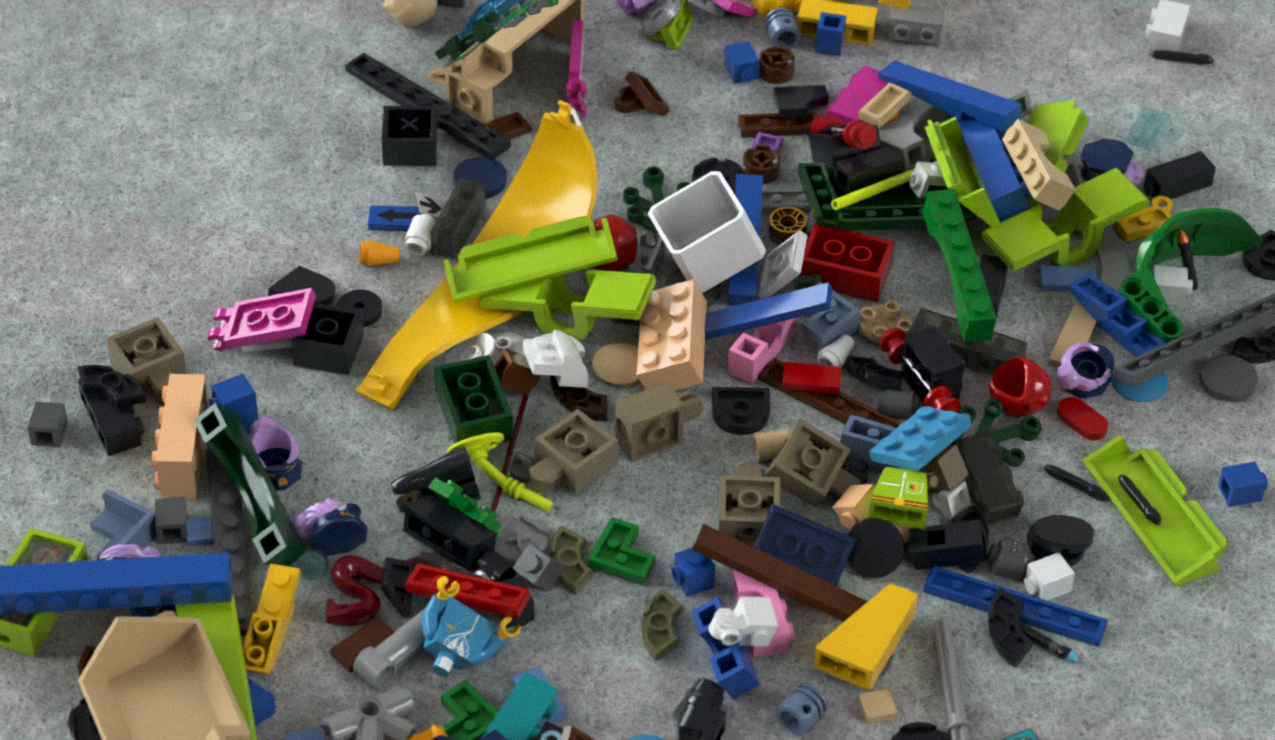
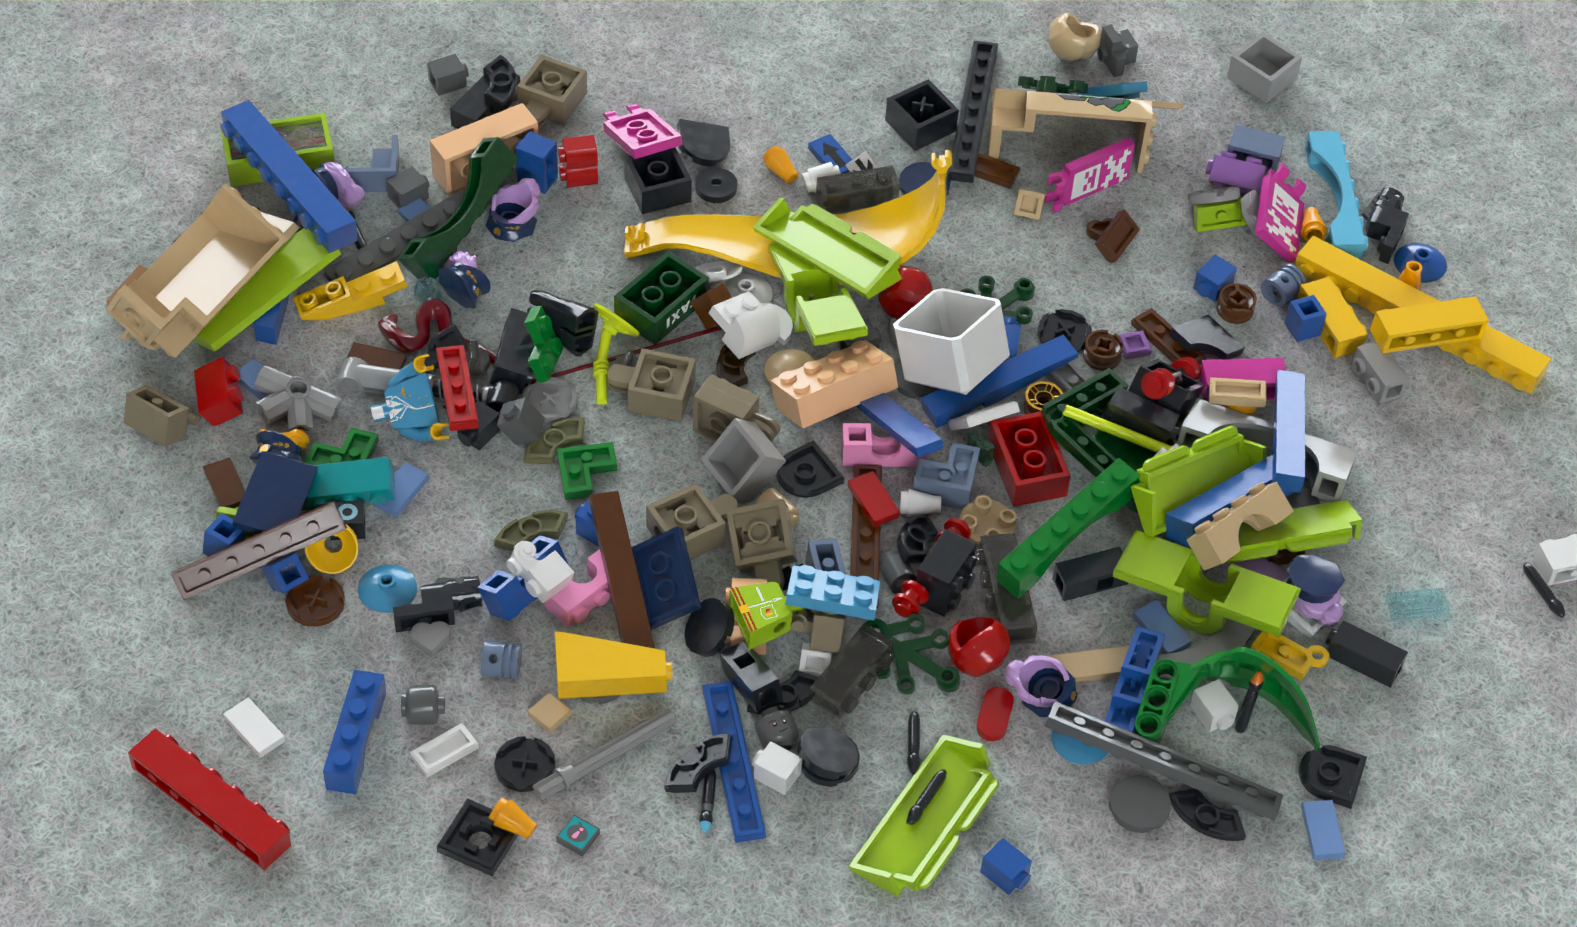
camera: 55 degrees right, 5 degrees up
(263, 374) = (579, 161): none -> red brick
(713, 434) = (743, 460): none -> light grey piece

